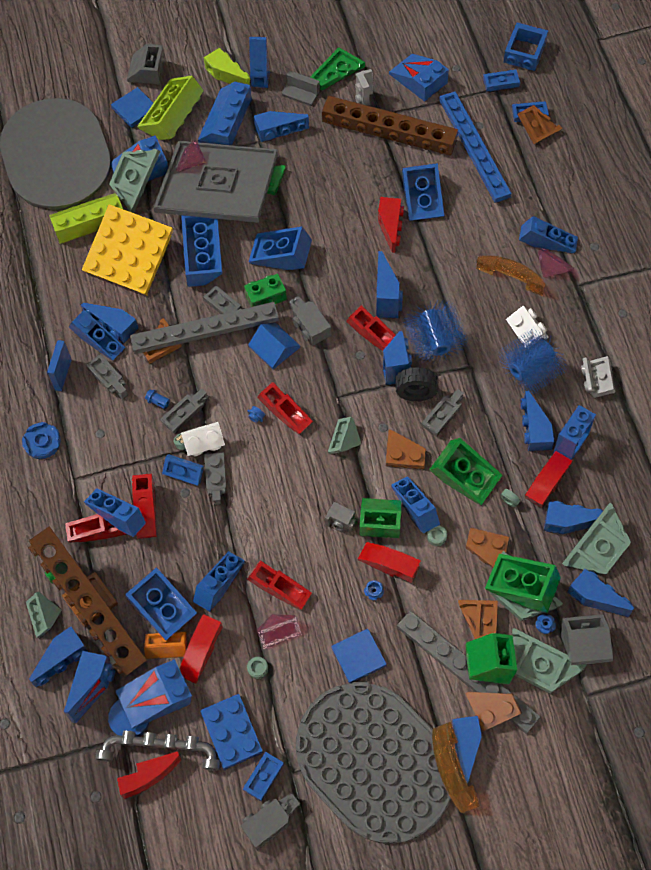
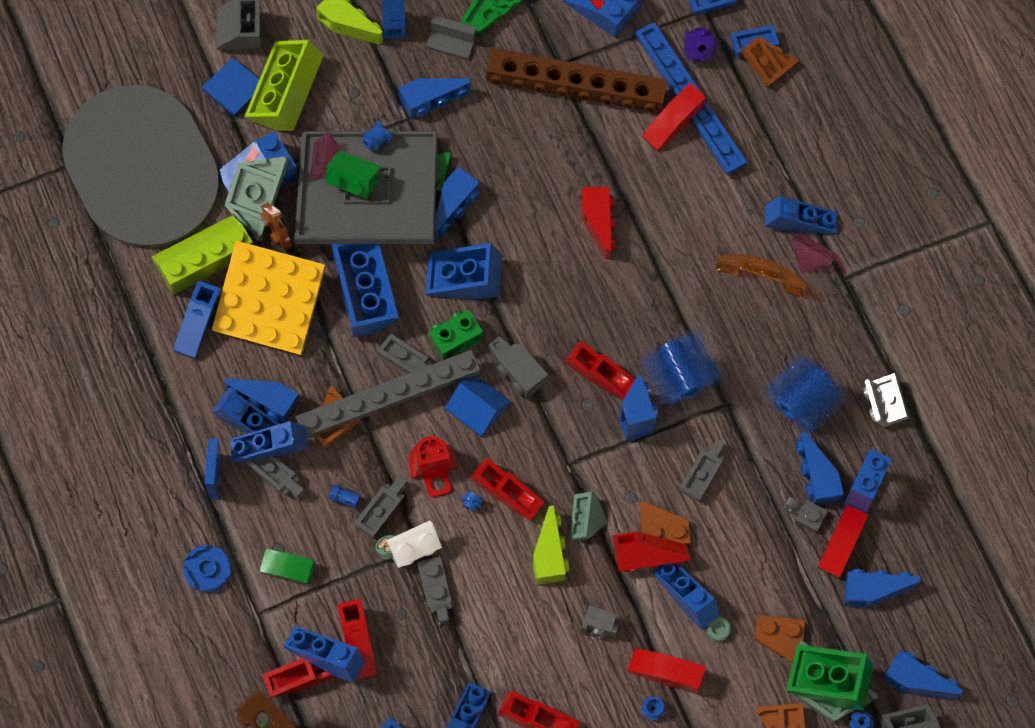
camera: 15 degrees left, 5 degrees up
(71, 259) = (197, 319): none -> blue slope
(102, 445) = (287, 566): none -> green slope
(107, 350) = (269, 442): none -> blue slope
(139, 193) = (271, 217): none -> dark orange wing
(182, 469) = (394, 585): blue plate -> none
(205, 167) = (352, 174): none -> green brick
(226, 114) = (358, 87): blue slope -> none
(230, 147) = (376, 137): none -> blue brick
(230, 380) = (432, 460): none -> red container
(283, 195) = (455, 196): none -> blue slope
(307, 461) = (548, 558): none -> lime slope
(364, 86) = (536, 32): light grey bracket -> none
(380, 518) = (648, 616): green slope -> none
(383, 465) = (643, 550): none -> red slope
(389, 296) = (612, 316): blue slope -> none
(416, 384) = (667, 440): black tyre -> none
(423, 192) = (634, 173): blue slope -> none
(461, 156) = (674, 117): none -> red slope
(466, 471) = (741, 543): green slope -> none
(481, 104) = (699, 44): none -> dark purple brick
(510, 498) = (799, 571): sand green tile -> none
(523, 456) = (809, 515): none -> flat silver plate
(524, 320) = (787, 340): white bracket -> none
(600, 544) = (914, 617): sand green wing -> none

